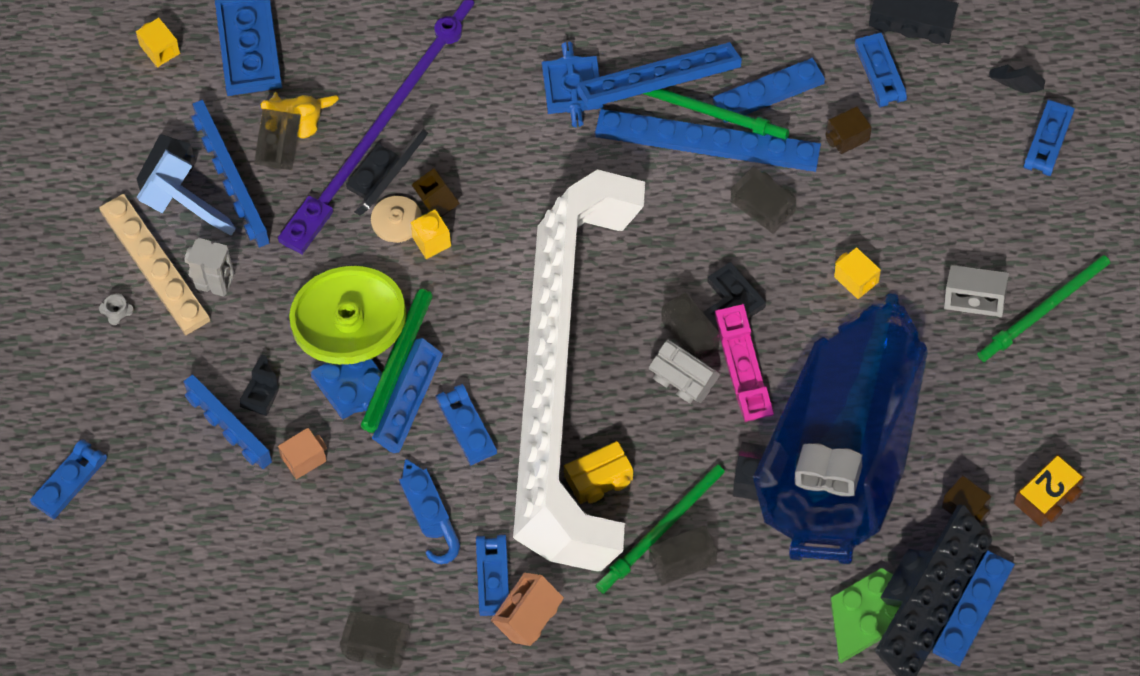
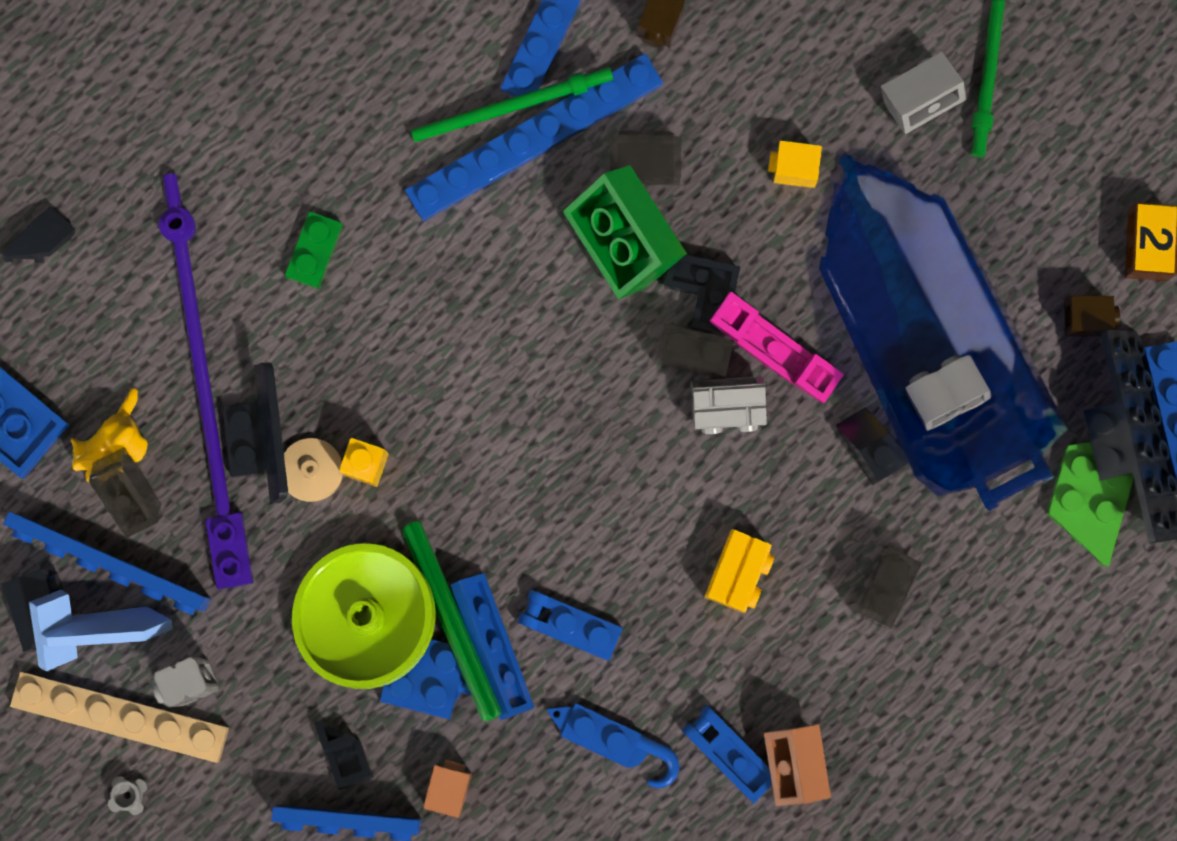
camera: 40 degrees left, 20 degrees up
(435, 193) = (331, 417): dark brown brick -> none
(514, 102) = (314, 250): none -> green plate
(544, 510) = (607, 513): white arch -> none
(561, 83) = (354, 186): blue plate -> none
(621, 567) = (838, 645): green bar -> none
(658, 75) = (432, 109): blue plate -> none
(709, 224) = (624, 231): none -> green brick

